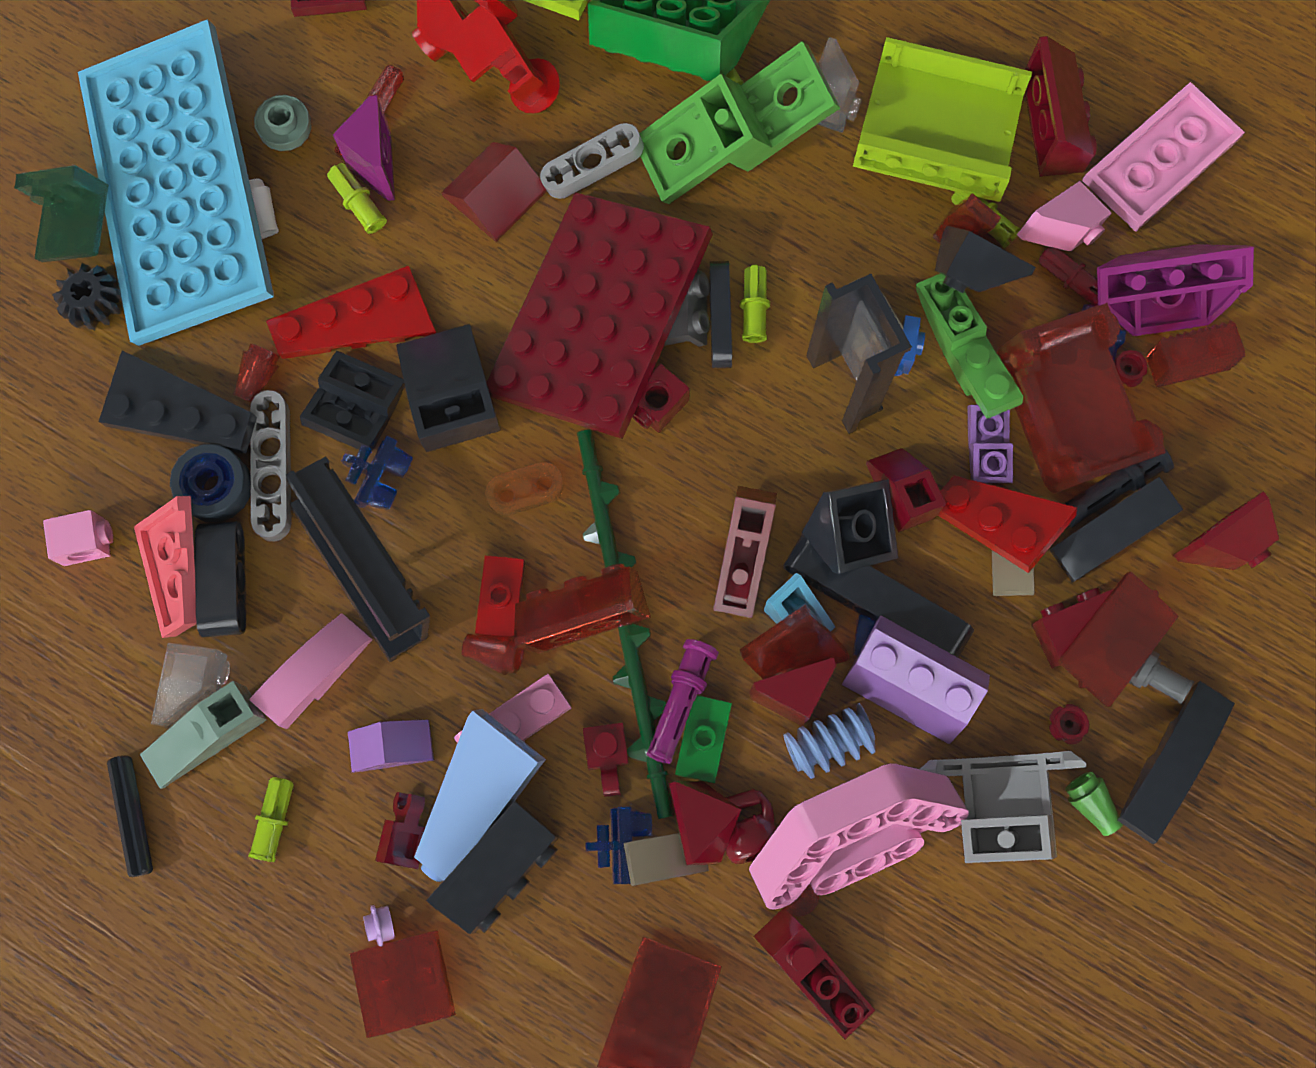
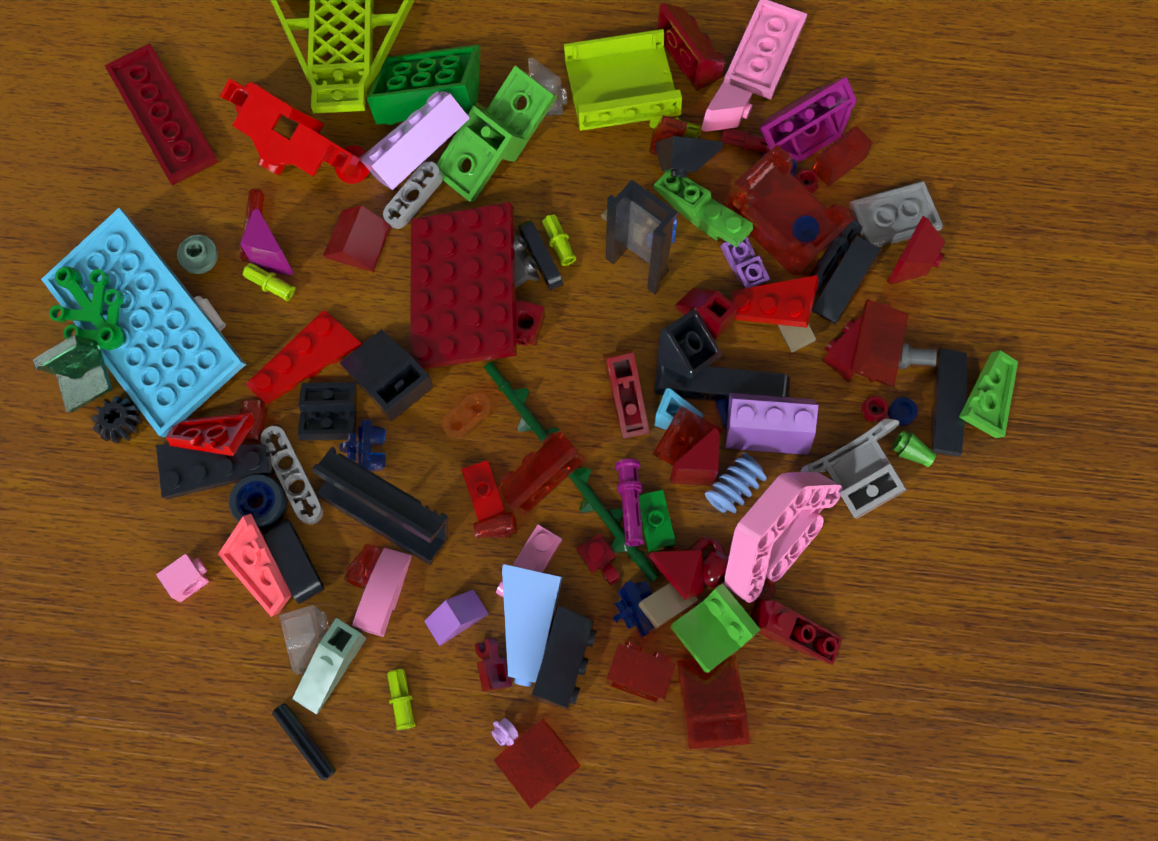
camera: 25 degrees left, 5 degrees down
(124, 181) = (91, 309): none -> green plant
(191, 369) = (212, 434): none -> red wing
(302, 625) = (362, 566): none -> clear red cone
(583, 935) = (640, 673): none -> clear red brick
(624, 87) = (414, 139): none -> lavender wedge
(708, 921) = (715, 628): none -> bright green bracket
(1093, 436) = (805, 229): none -> clear blue tile
(1106, 744) = (903, 410): none -> clear blue tile
(1230, 467) = (894, 214): none -> light grey tile
(1240, 780) = (992, 395): none -> bright green wing

